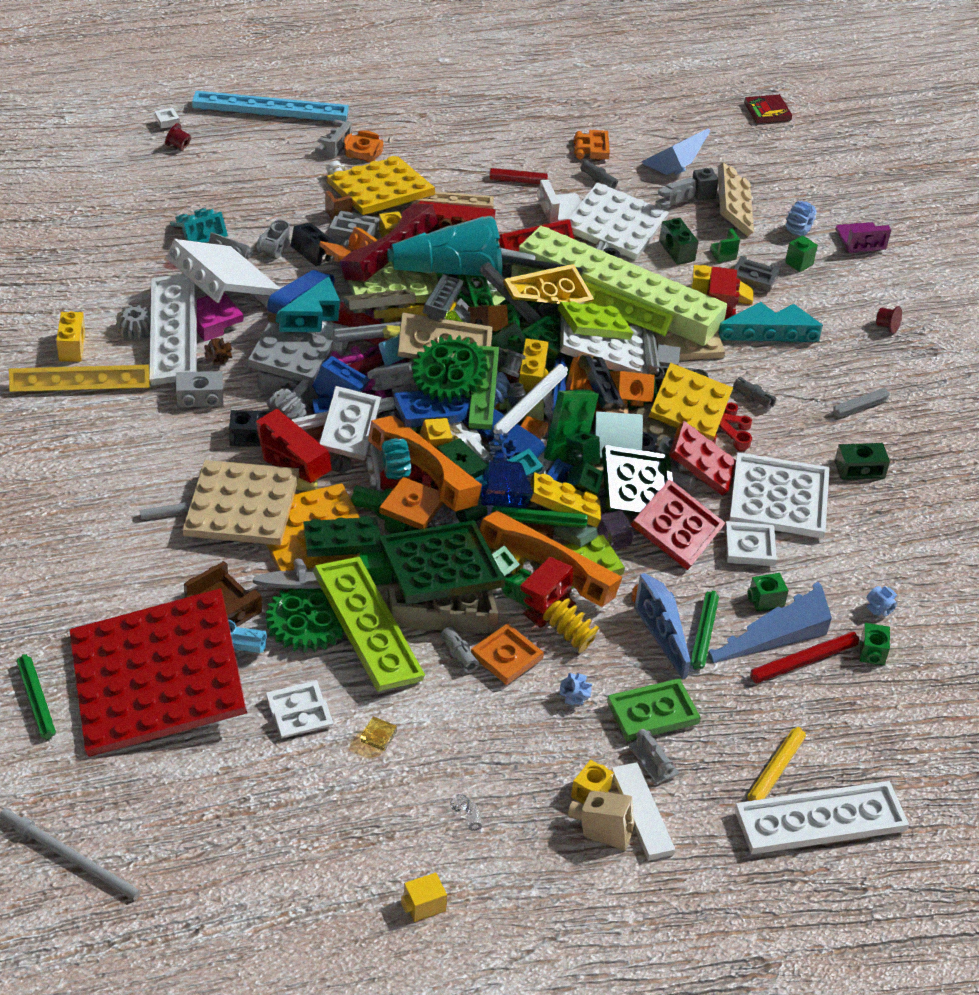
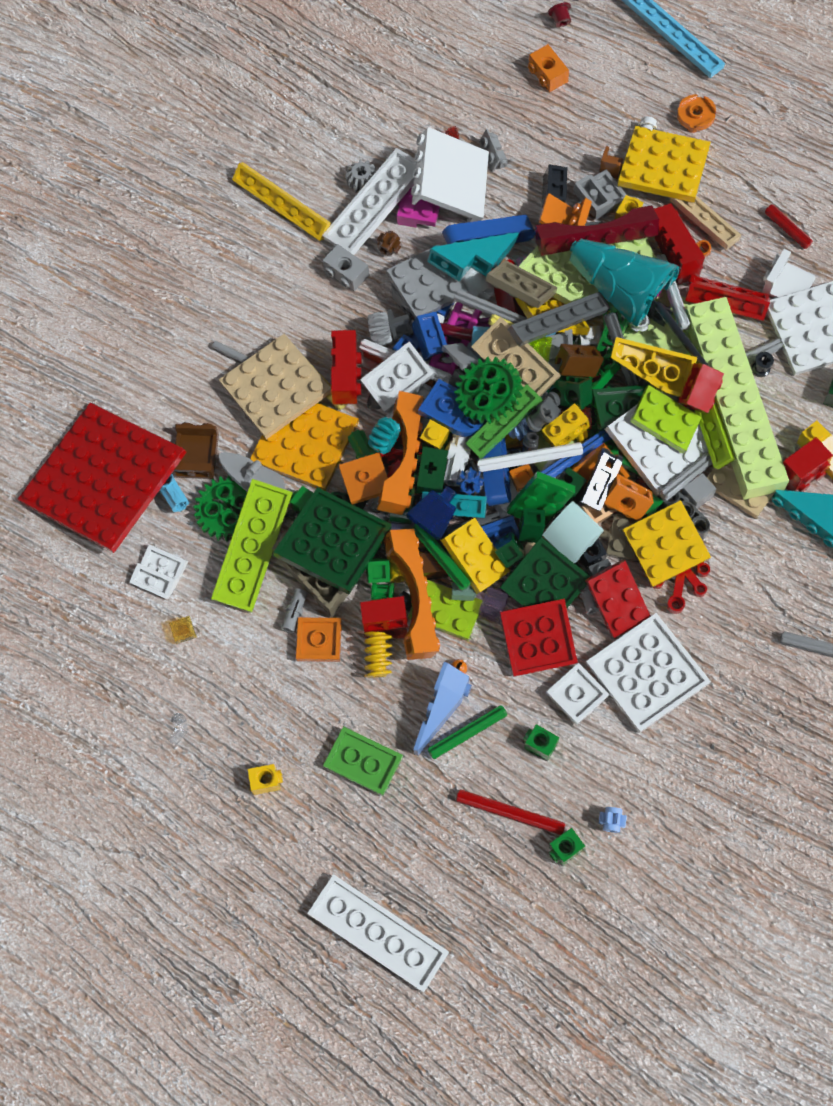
camera: 55 degrees right, 25 degrees up
(35, 697) = (29, 436): green axle -> none
(71, 336) = (308, 160): yellow brick -> none
(200, 225) = (492, 114): teal bracket -> none
(210, 174) = (548, 68): none -> orange brick
(243, 427) = (351, 323): black brick -> none
(275, 238) = (531, 165): light grey piece -> none
(334, 142) = (672, 96): light grey hinge -> none
(342, 536) = (303, 465): dark green plate -> none
(424, 897) = (90, 764): yellow brick -> none
(575, 689) = (328, 704): light blue gear -> none
(599, 281) = (701, 388): none -> brick
(606, 818) = (240, 811): tan torso -> none
(647, 818) = (278, 824): white tile -> none
(652, 757) = (325, 794): light grey hinge -> none
(754, 393) = (736, 570): dark grey pin -> none
(777, 764) = (395, 871): yellow axle -> none
(799, 621) = (524, 780): medium blue wedge -> none
(862, 461) = (751, 707): dark green brick -> none

